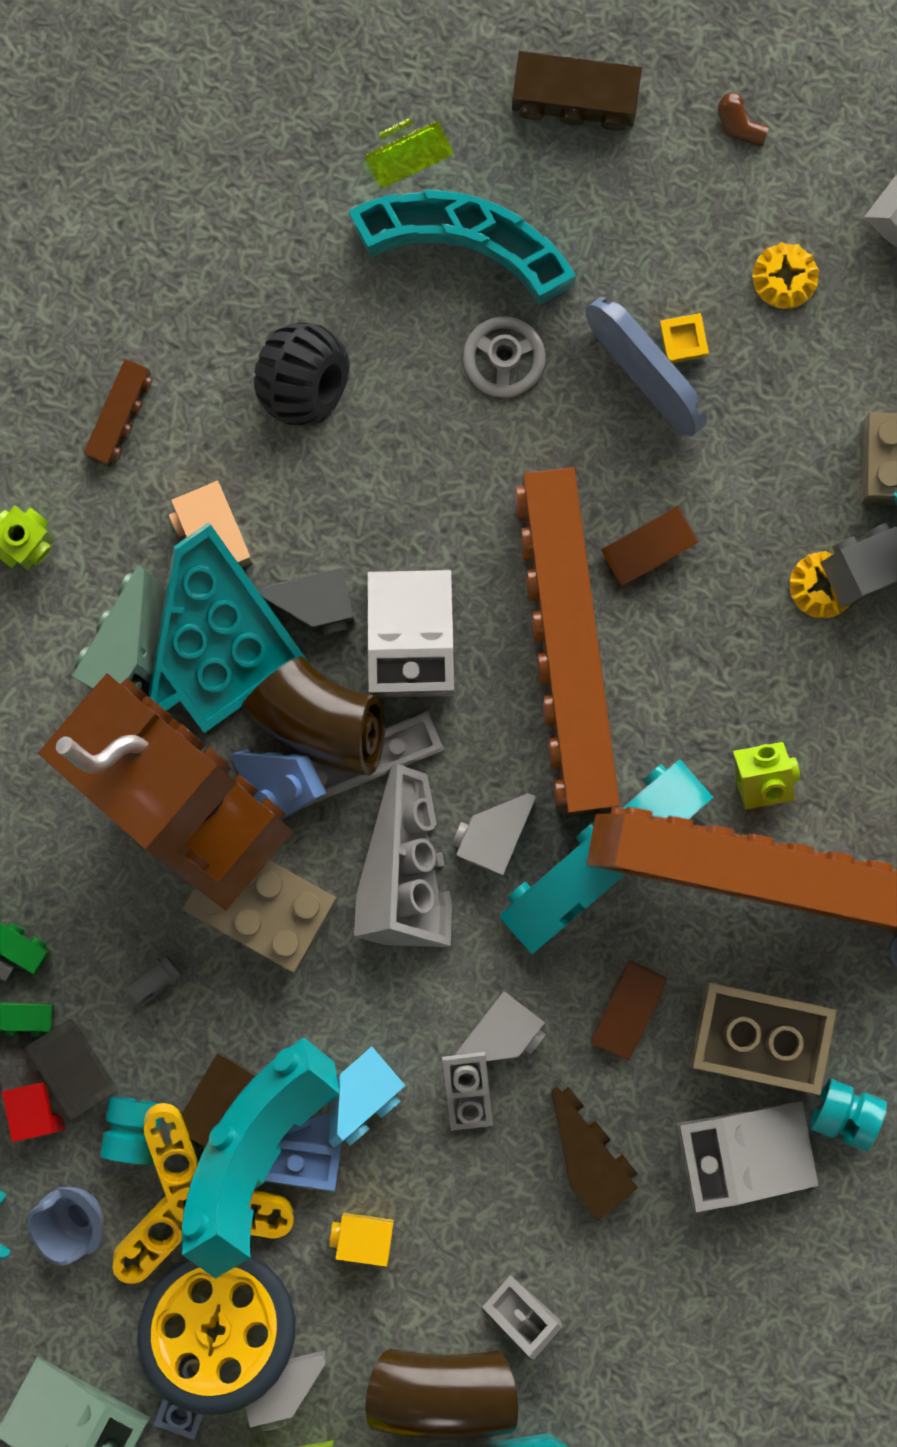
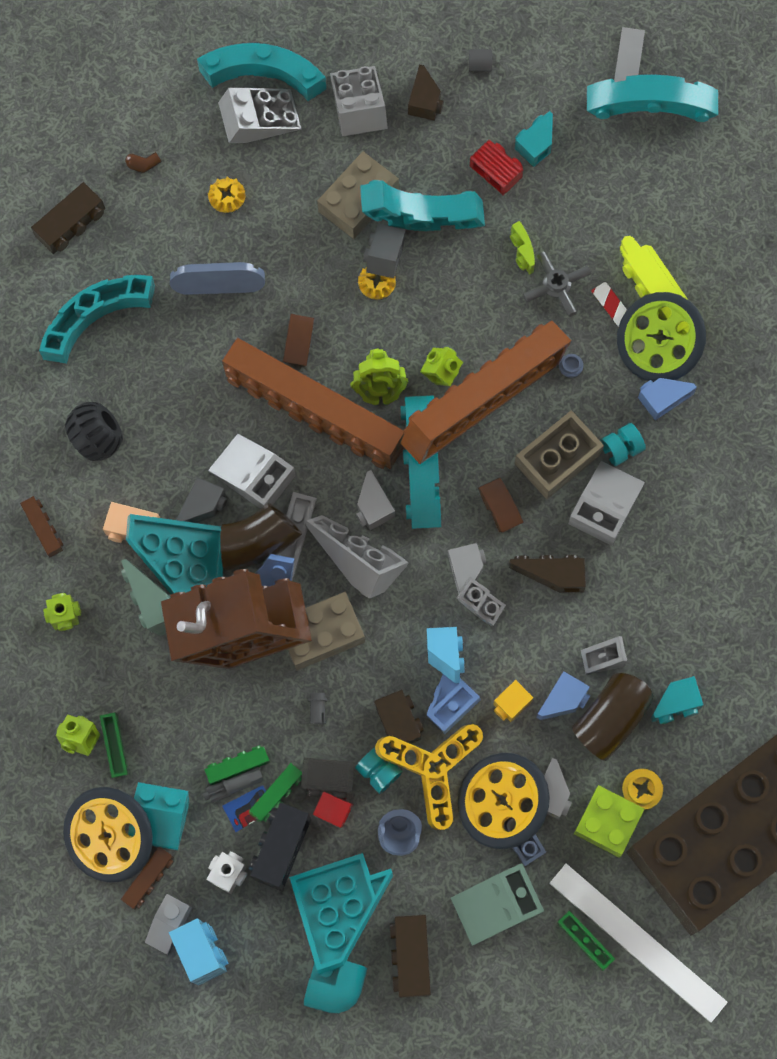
camera: 50 degrees left, 10 degrees down
(245, 1149) = (428, 718): teal brick -> none
(408, 153) = (34, 312): clear neon green piece -> none
(422, 1306) = (565, 697): none -> medium blue slope
(504, 342) = (160, 330): light grey piece -> none
(678, 703) = (378, 374): none -> lime piece
(684, 338) = (218, 254): yellow plate -> none

